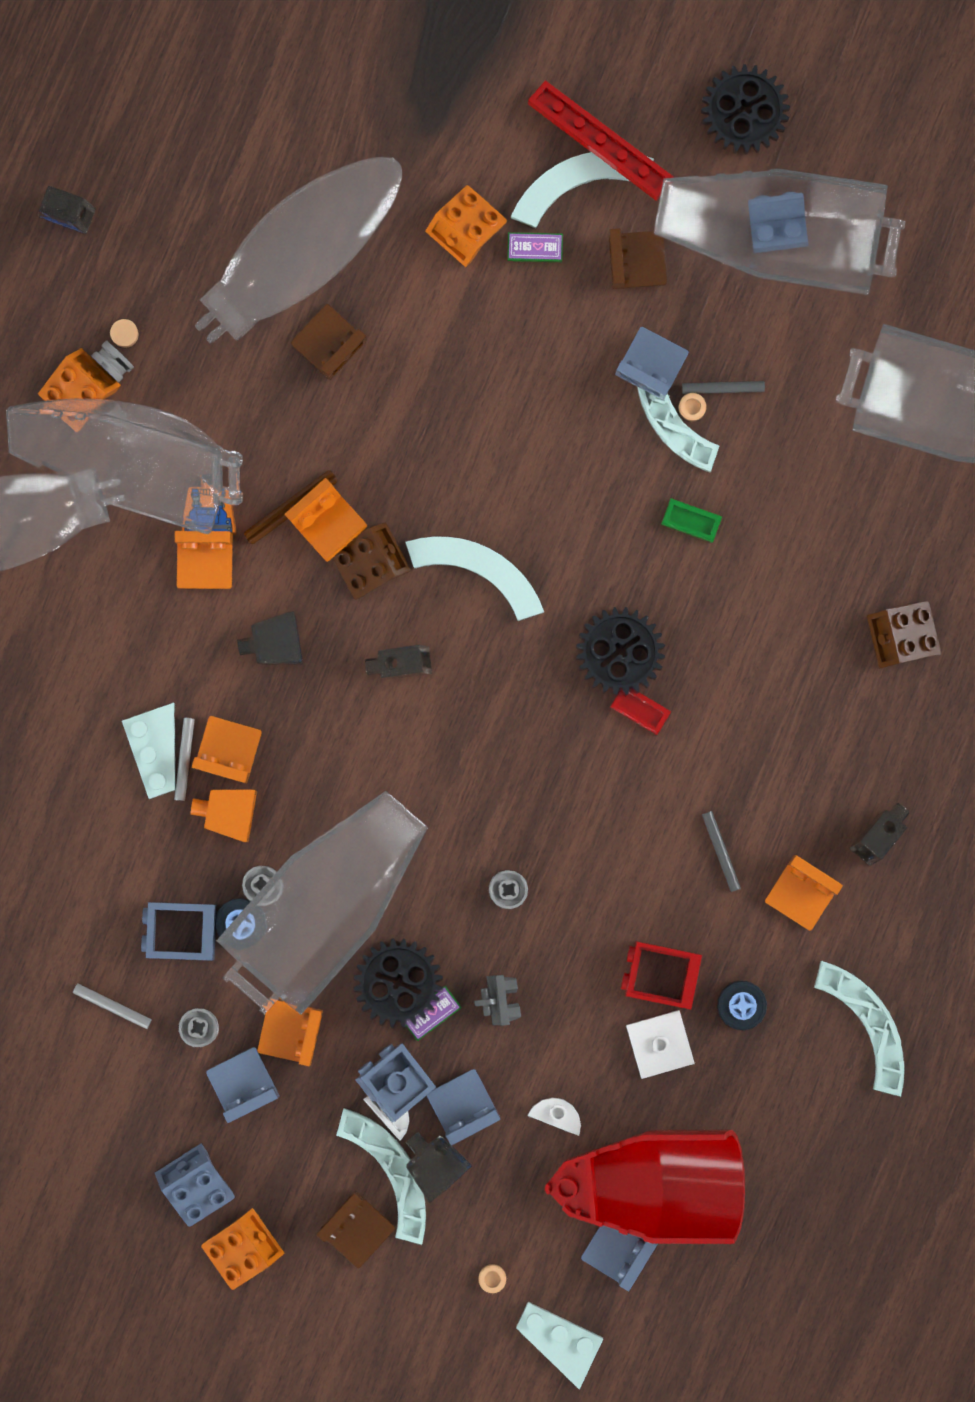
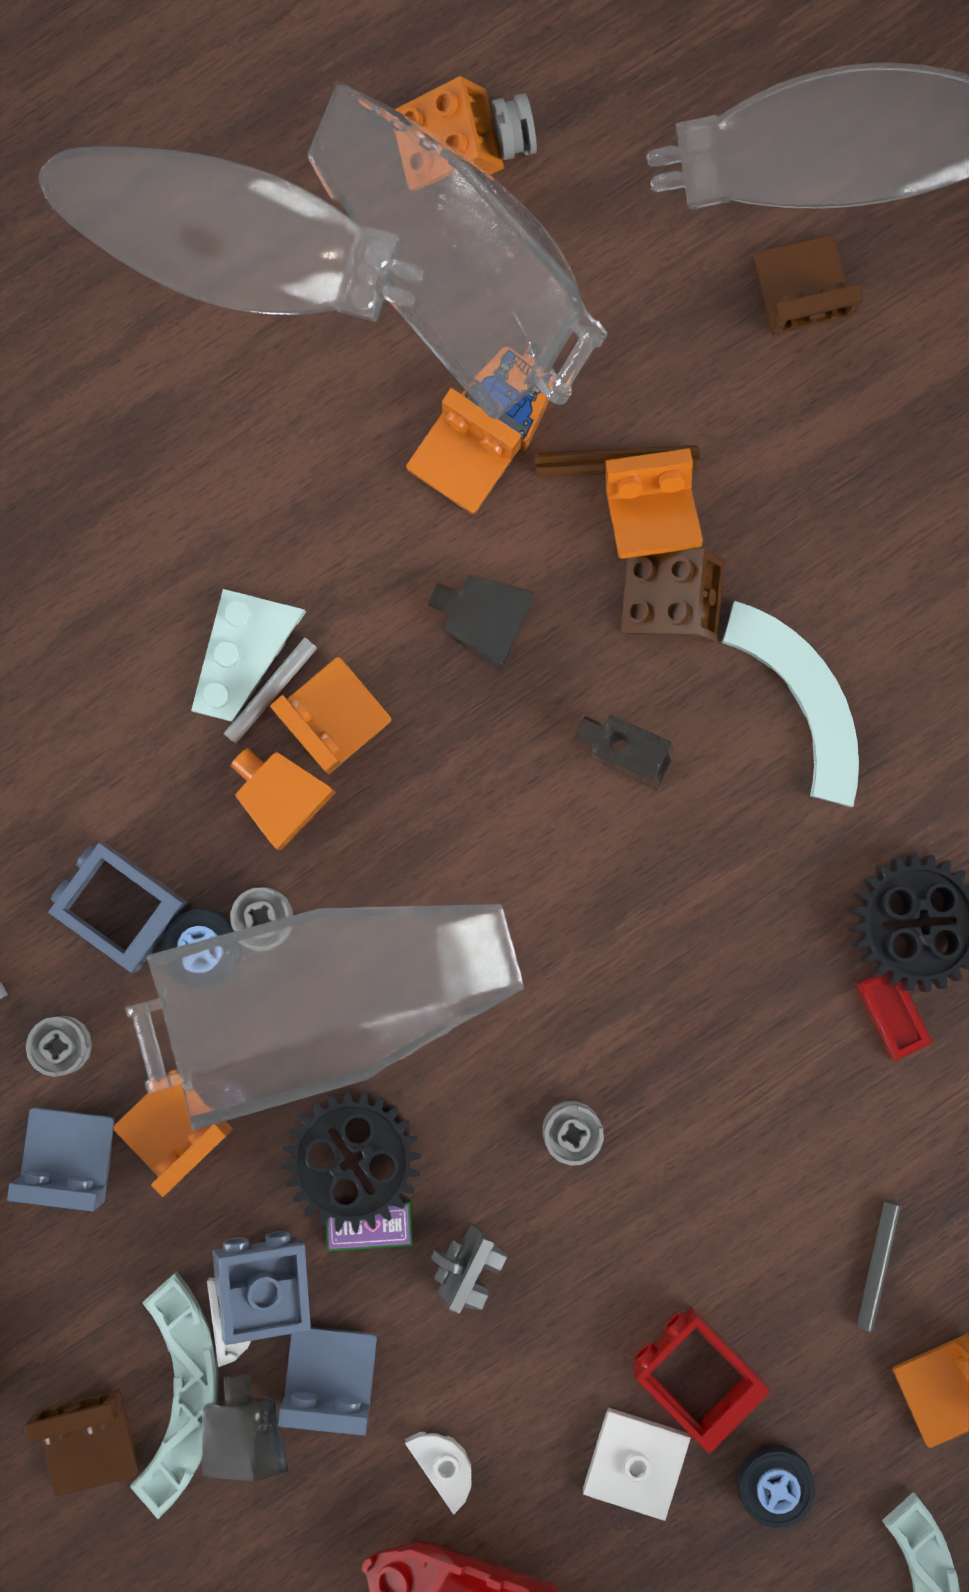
camera: 30 degrees right, 0 degrees up
(124, 333) = (551, 106): light nougat tile -> none

